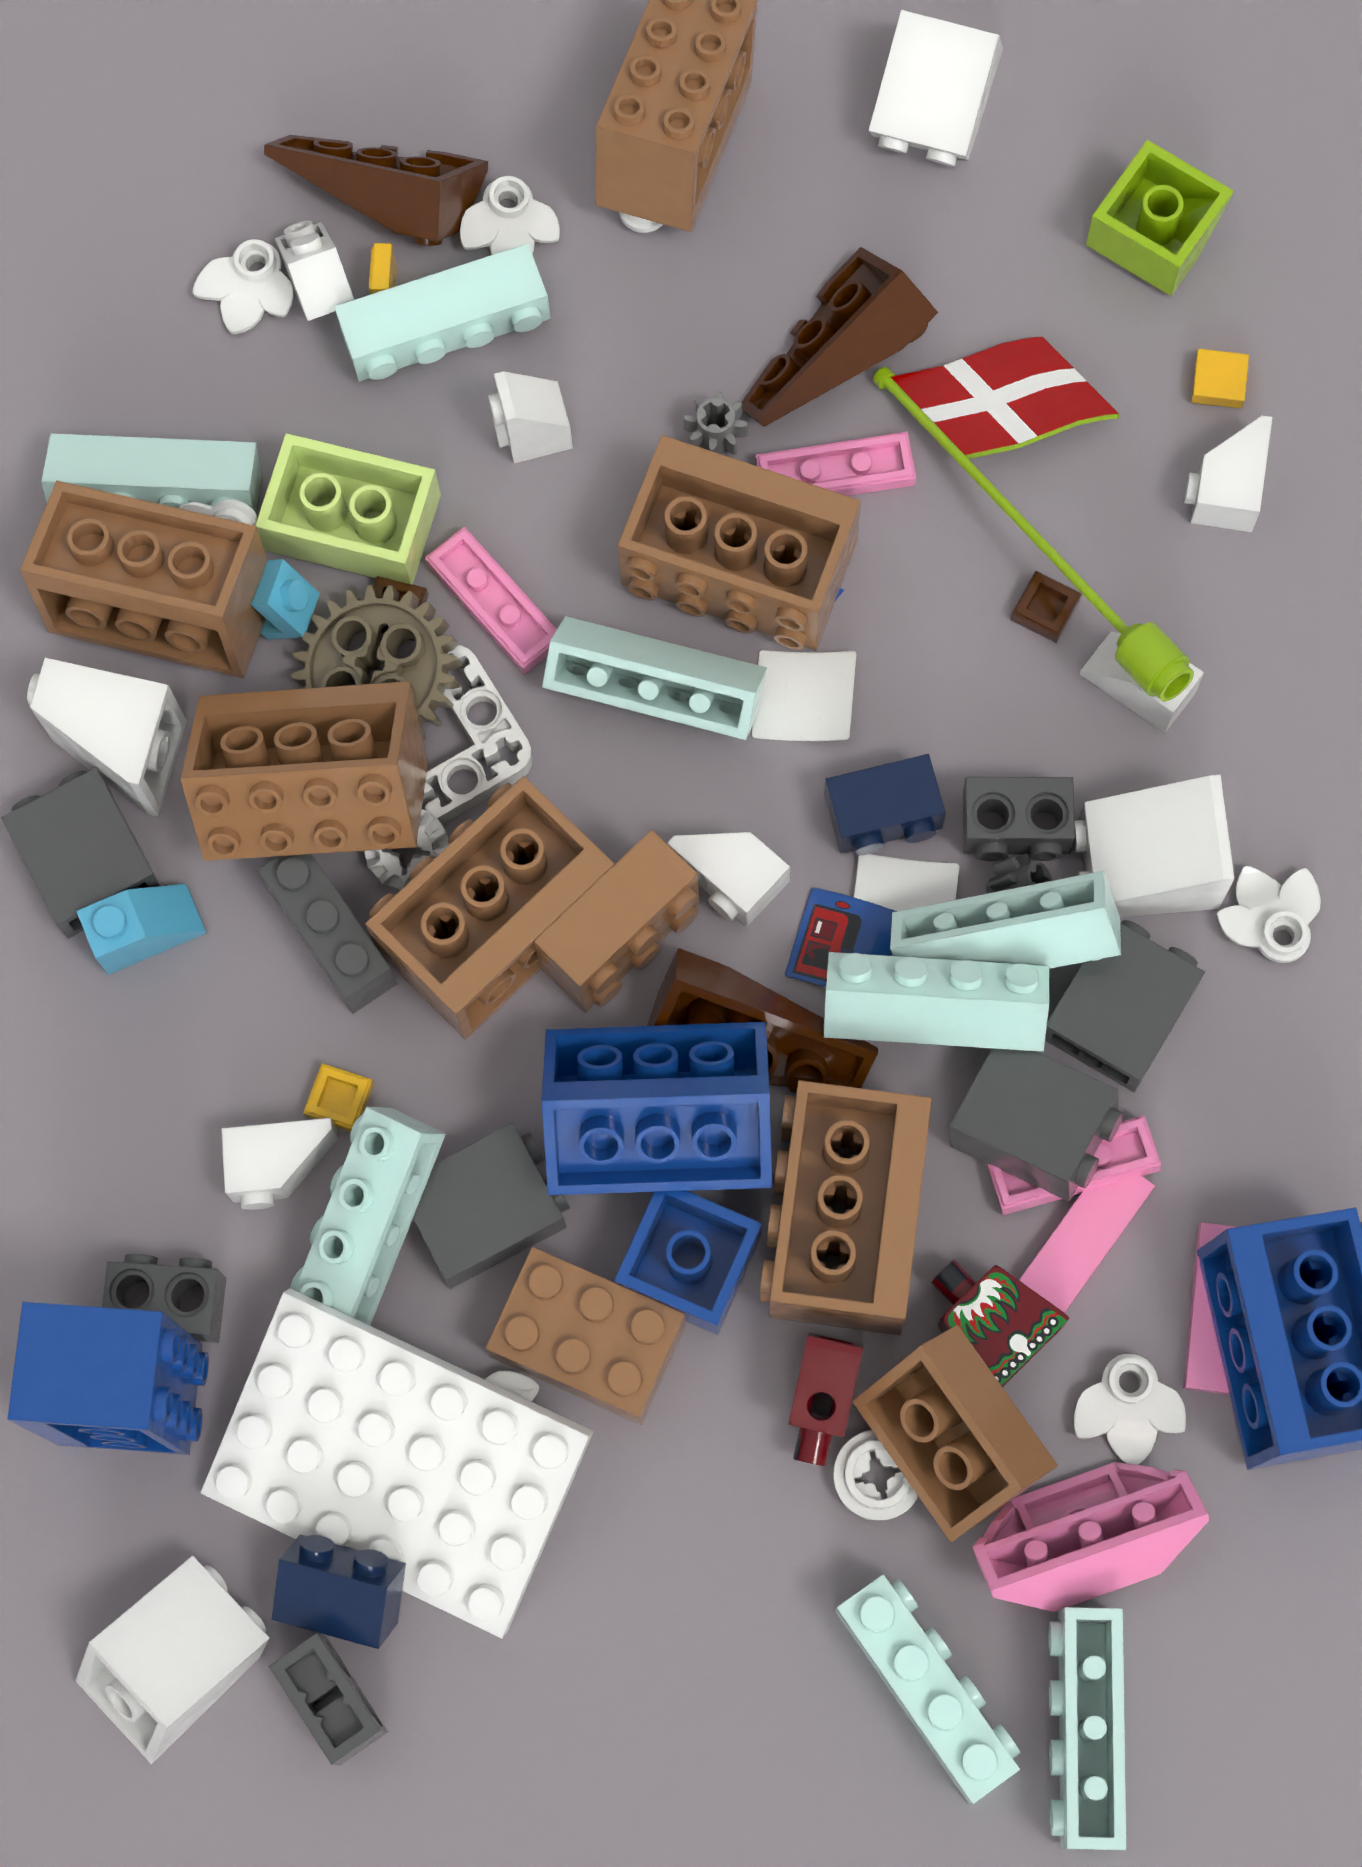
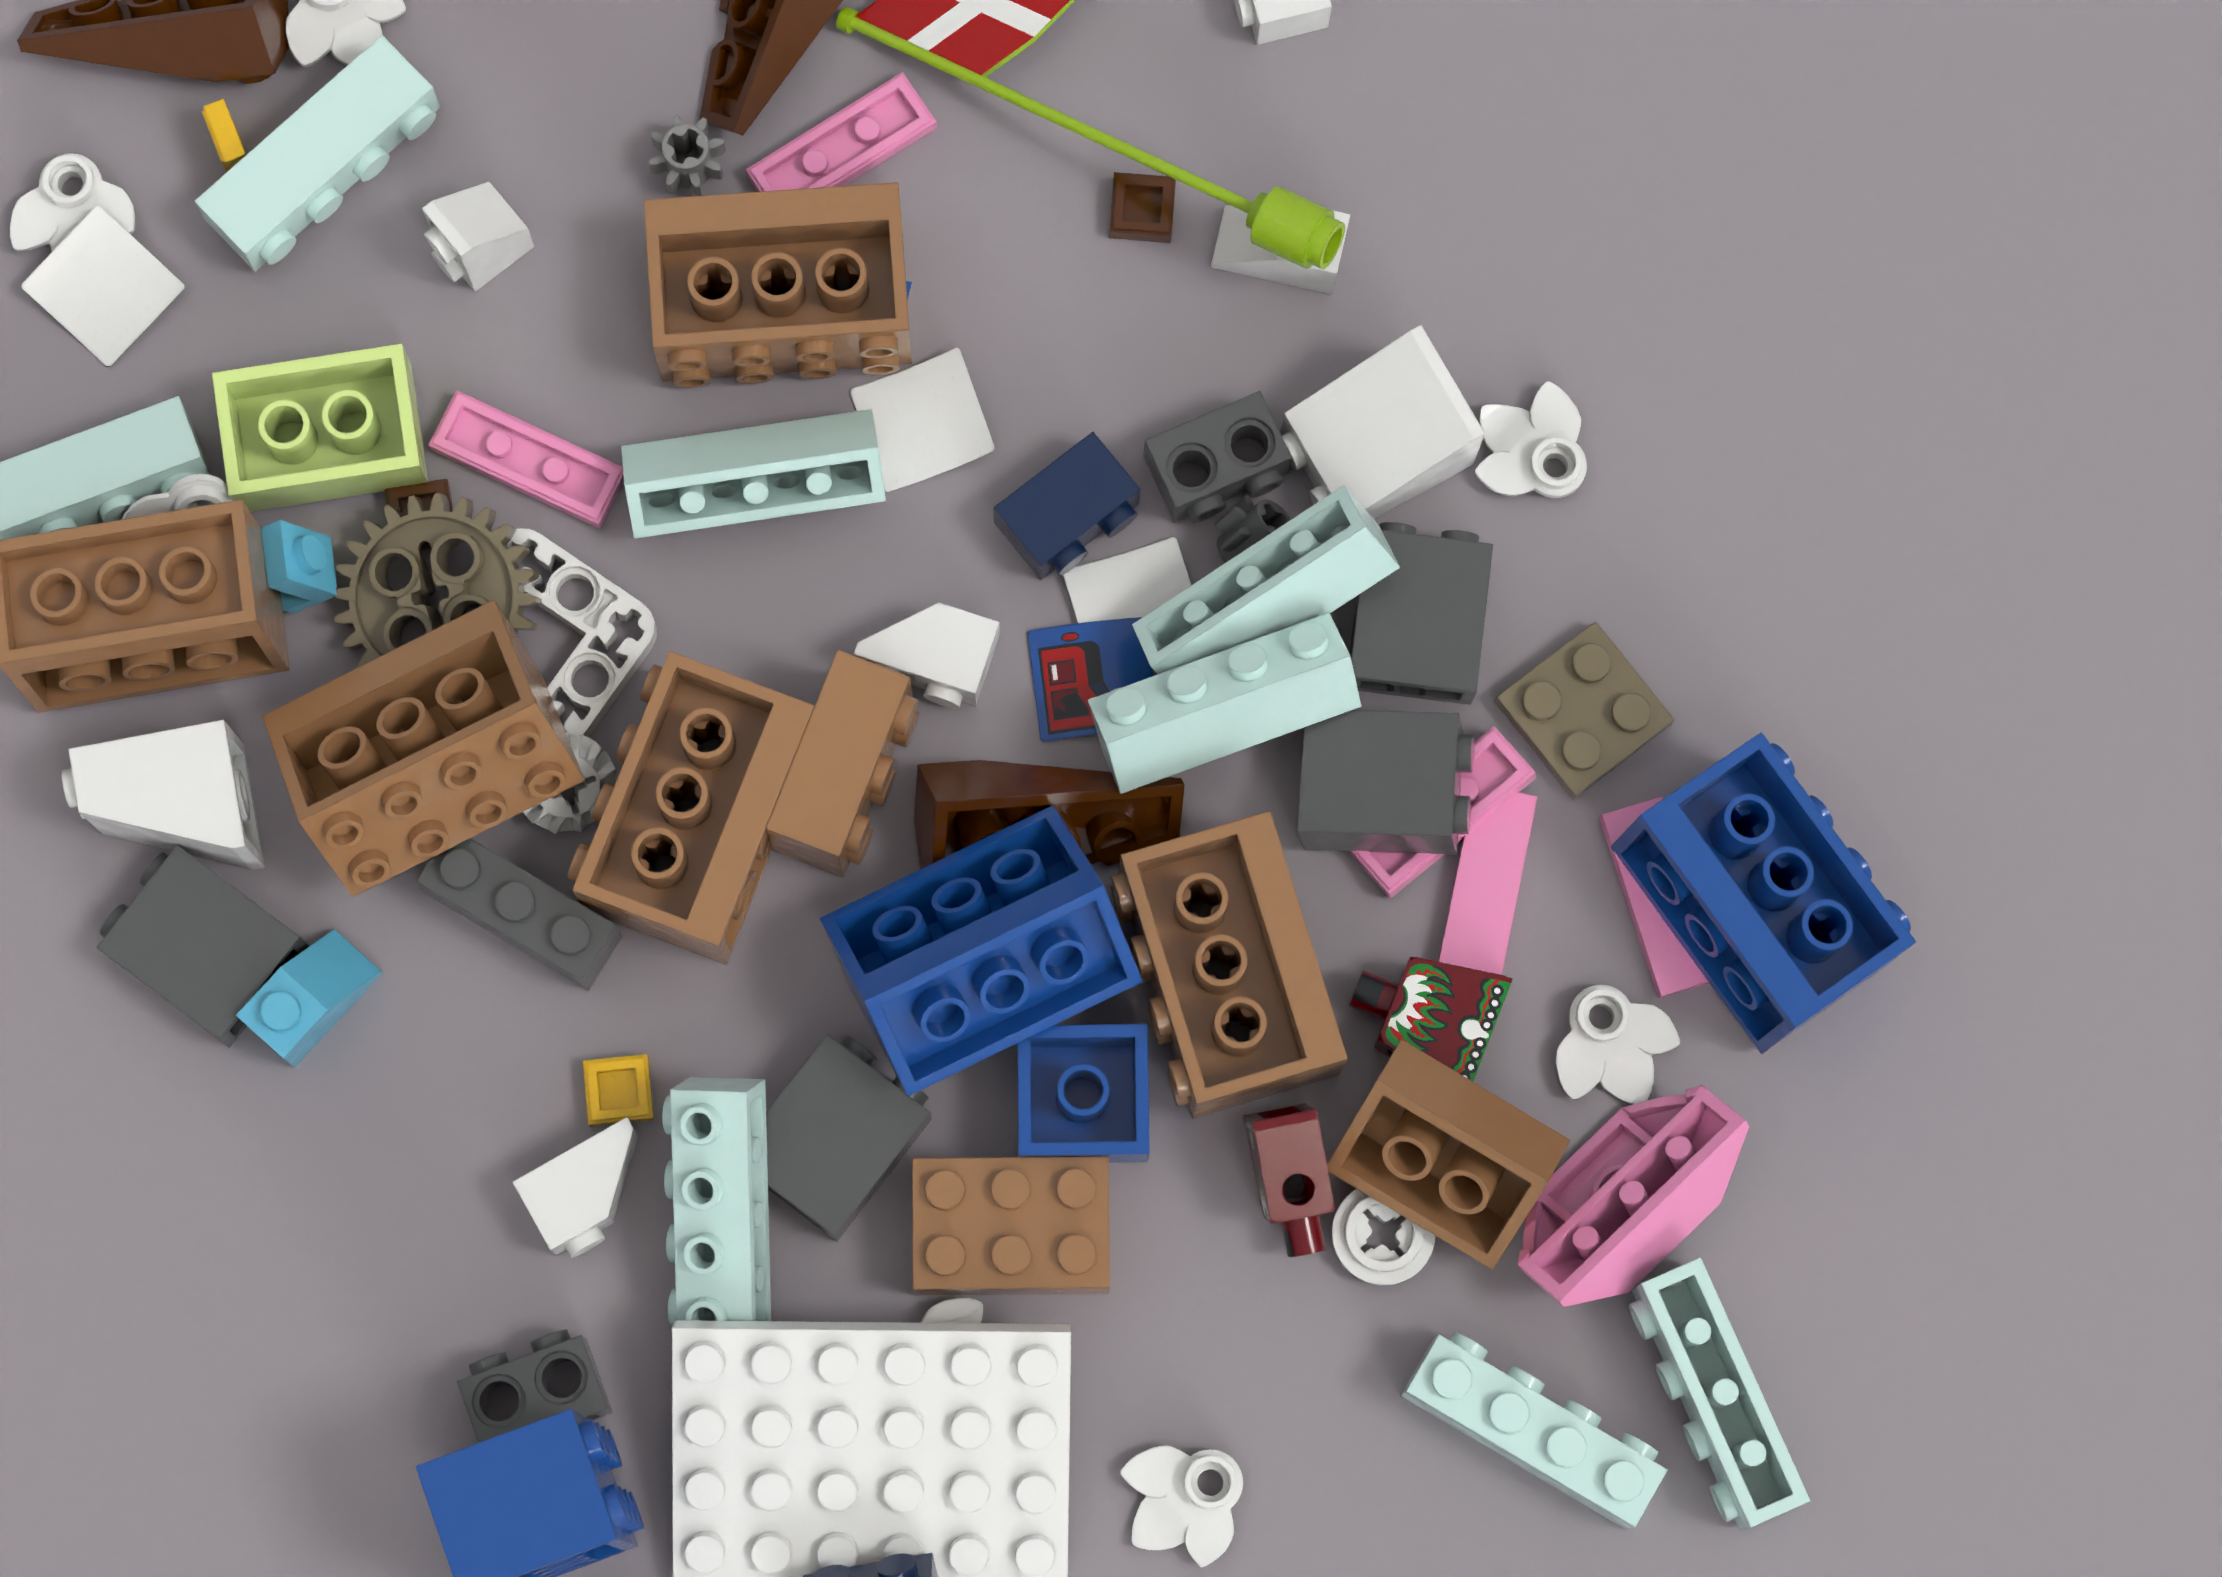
camera: 35 degrees left, 5 degrees up
(244, 345) = (103, 286): none -> white sticker
(314, 268) = (143, 162): white slope -> none
(616, 1618) = (1176, 1507): none -> white plate
(1223, 1135) = (1584, 710): none -> dark tan plate

